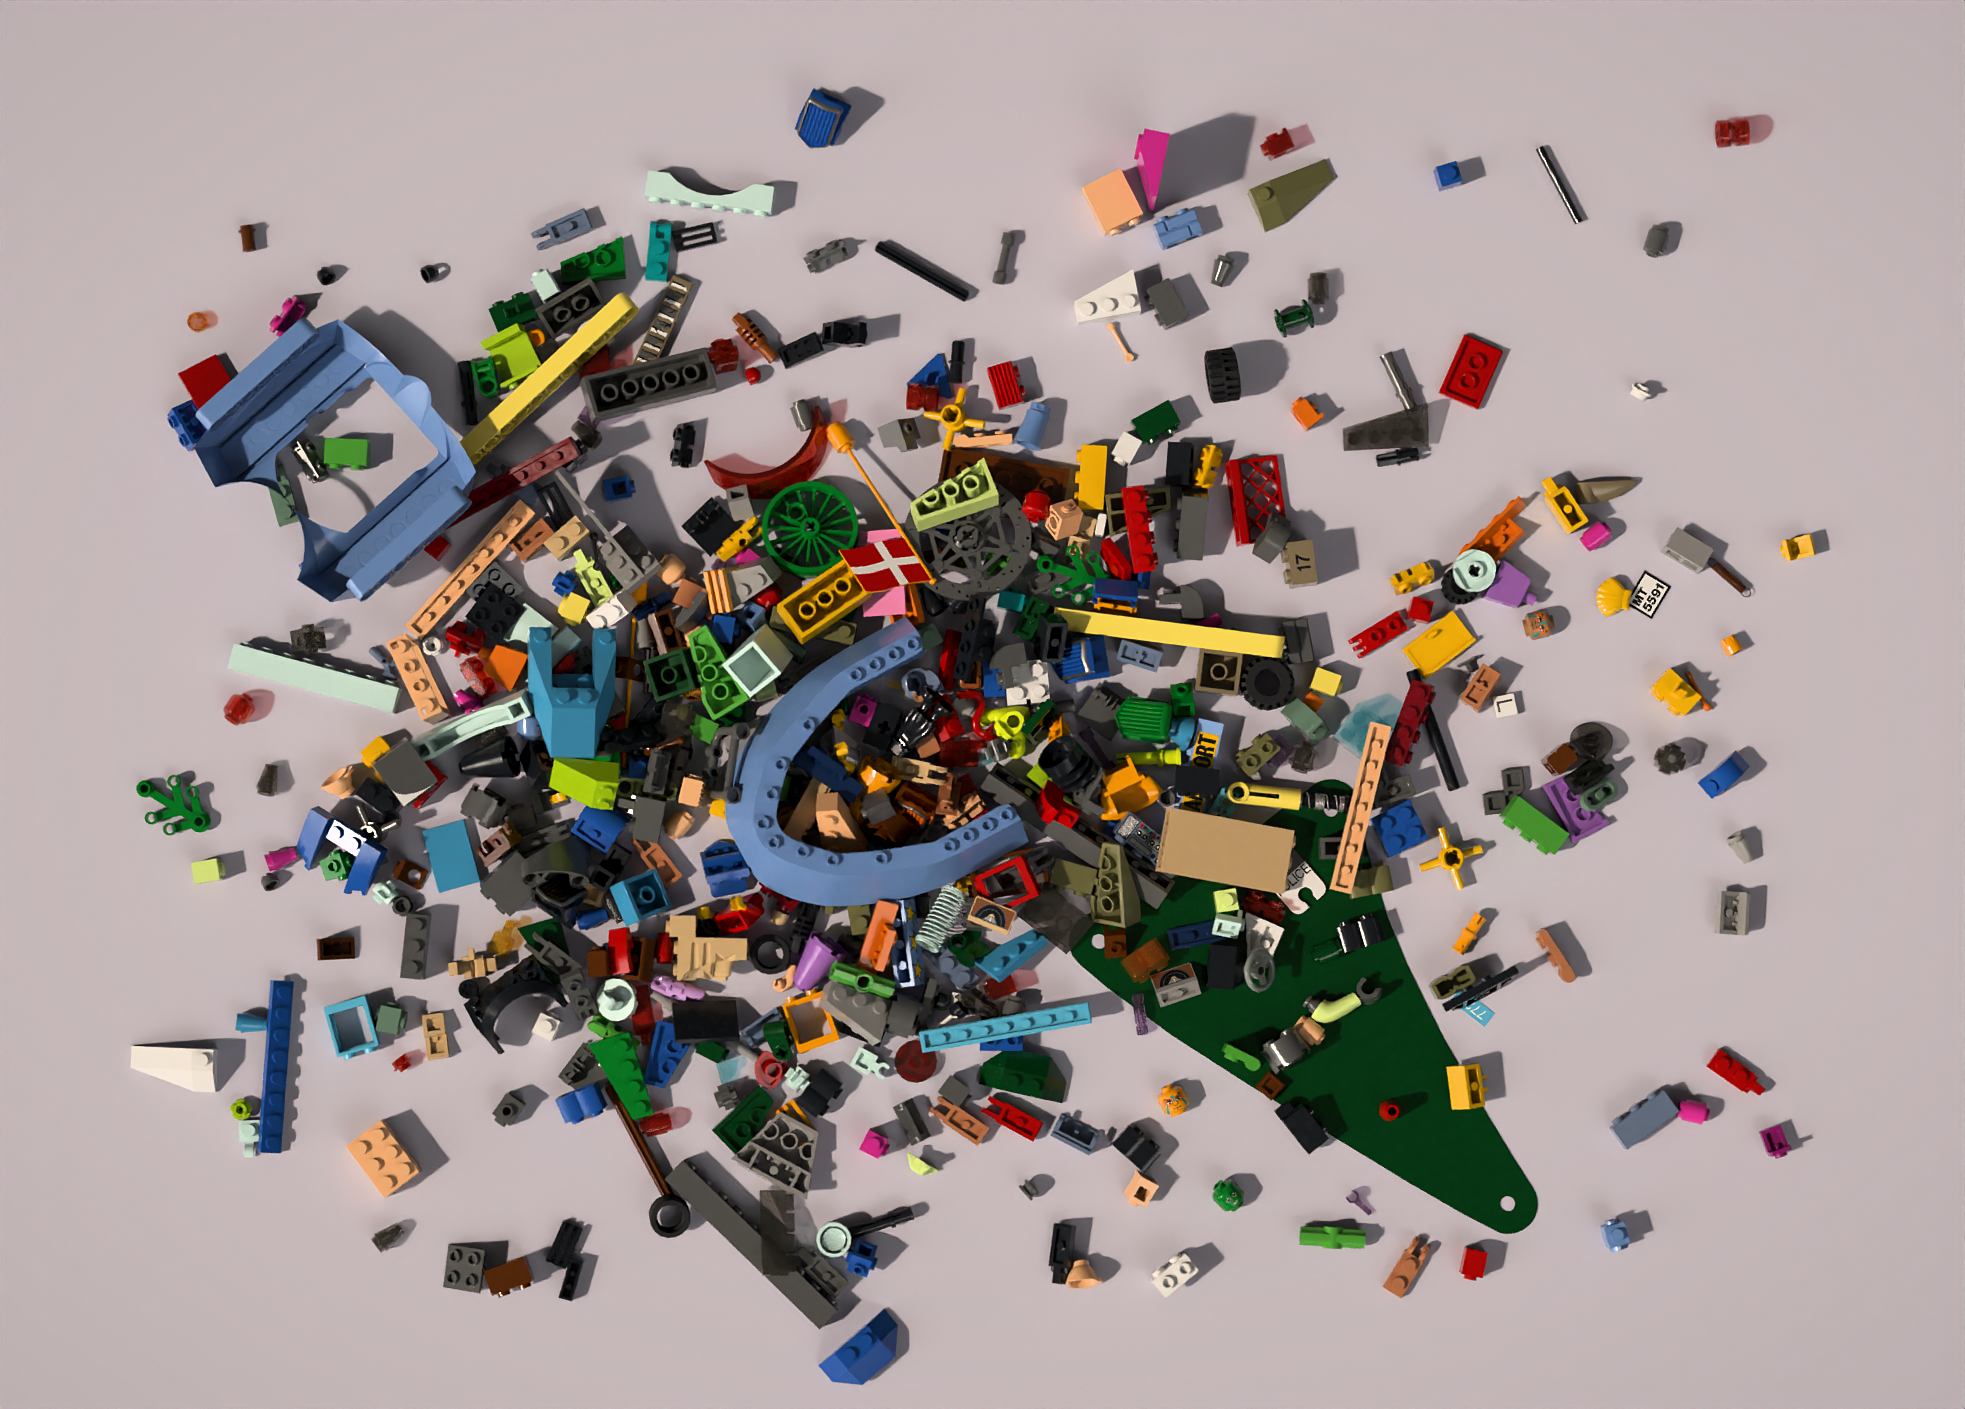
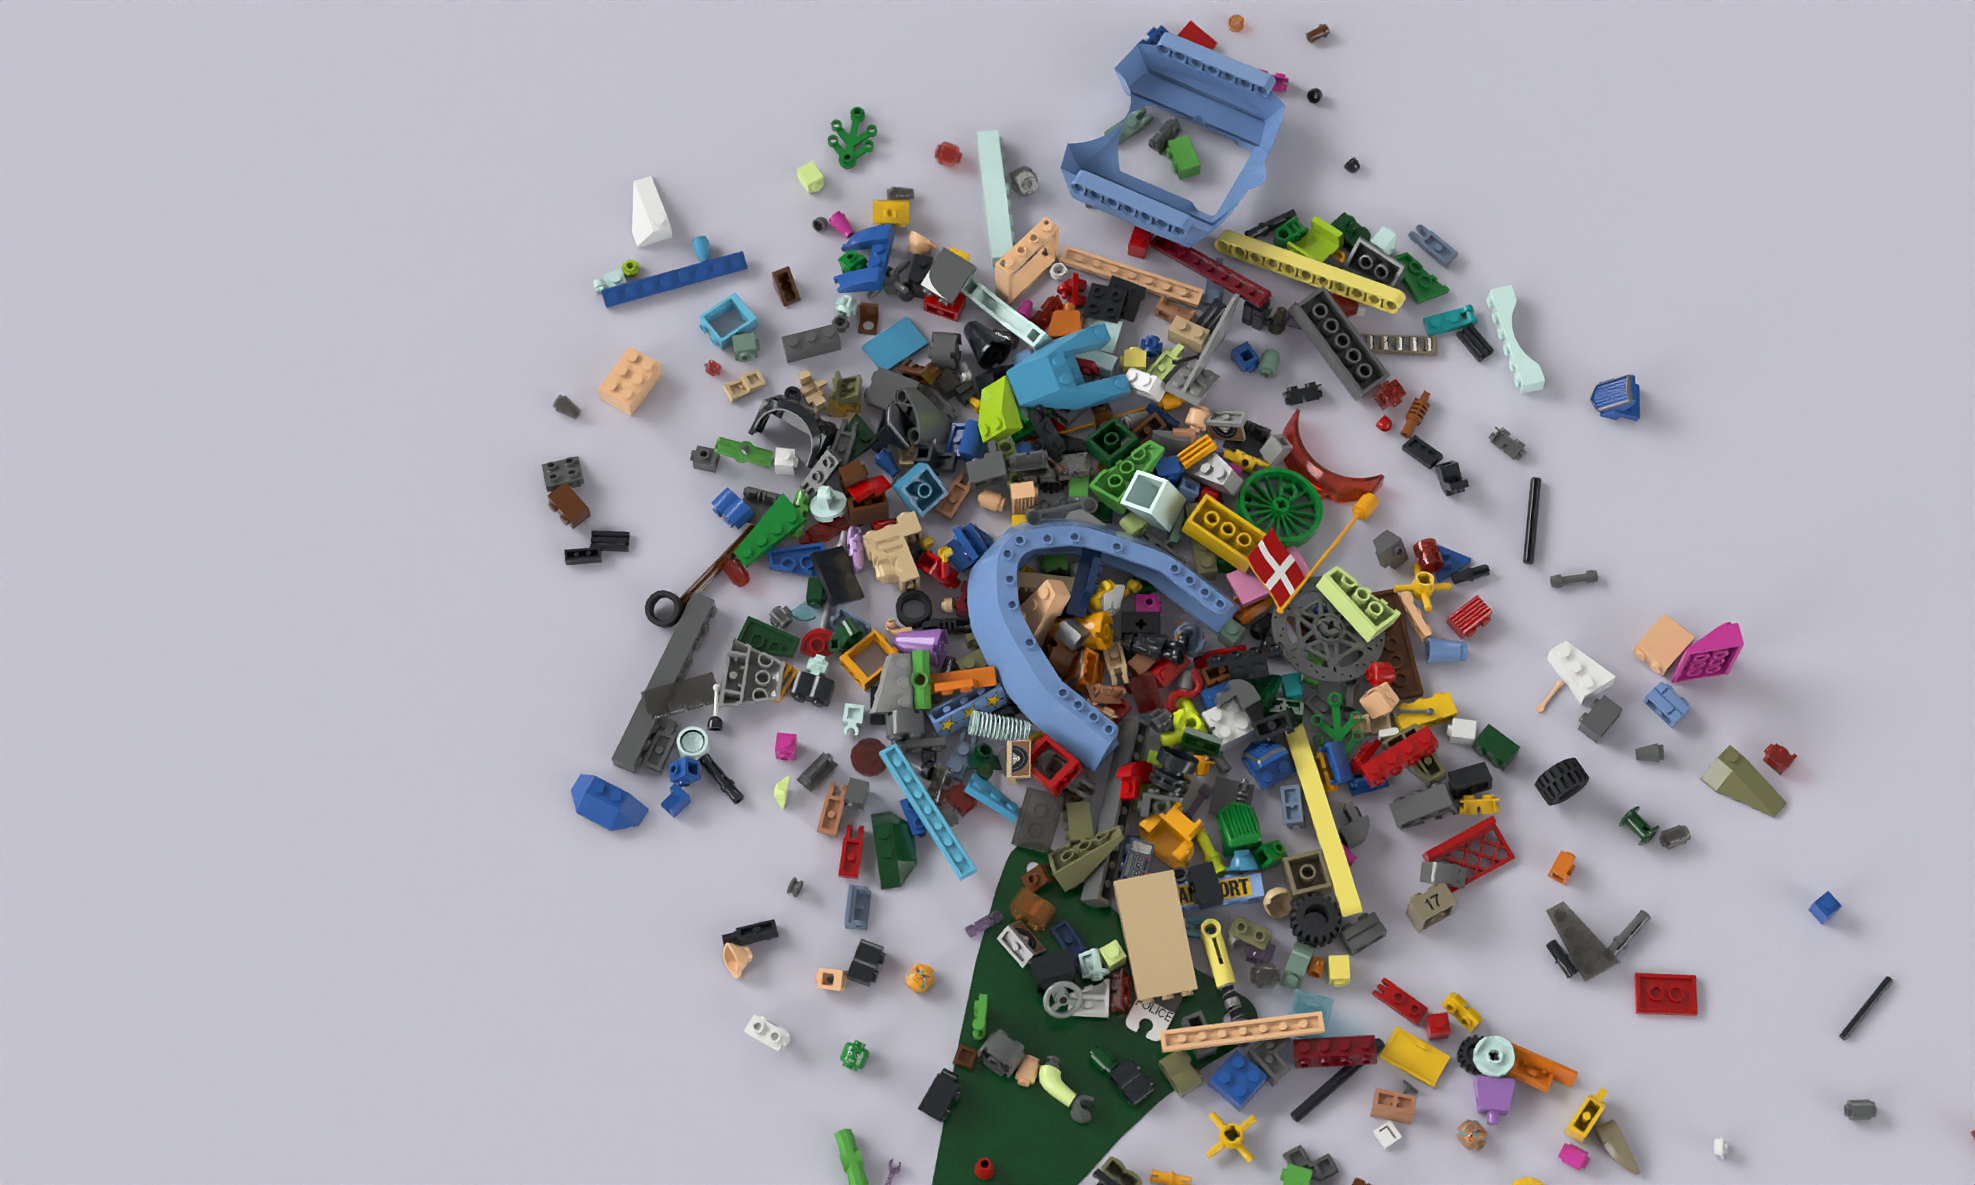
camera: 70 degrees right, 20 degrees down
(288, 799) = (891, 211): none -> yellow brick
(488, 929) = (847, 389): none -> olive bracket
(514, 1078) = (753, 454): none -> bright green piece
(522, 794) = (966, 372): none -> white arm
(634, 467) = (1268, 363): none -> sand green brick
(691, 542) = (1227, 425): none -> light grey panel
(803, 414) = (1371, 469): dark grey brick -> none
(817, 1207) = (714, 722): none -> hinge
(887, 1278) = (676, 800): none -> blue panel
(1008, 630) = (1266, 688): none -> dark green wing
(1096, 474) = (1396, 711): none -> dark grey hinge
(1234, 713) = (1278, 902): none -> tan hair

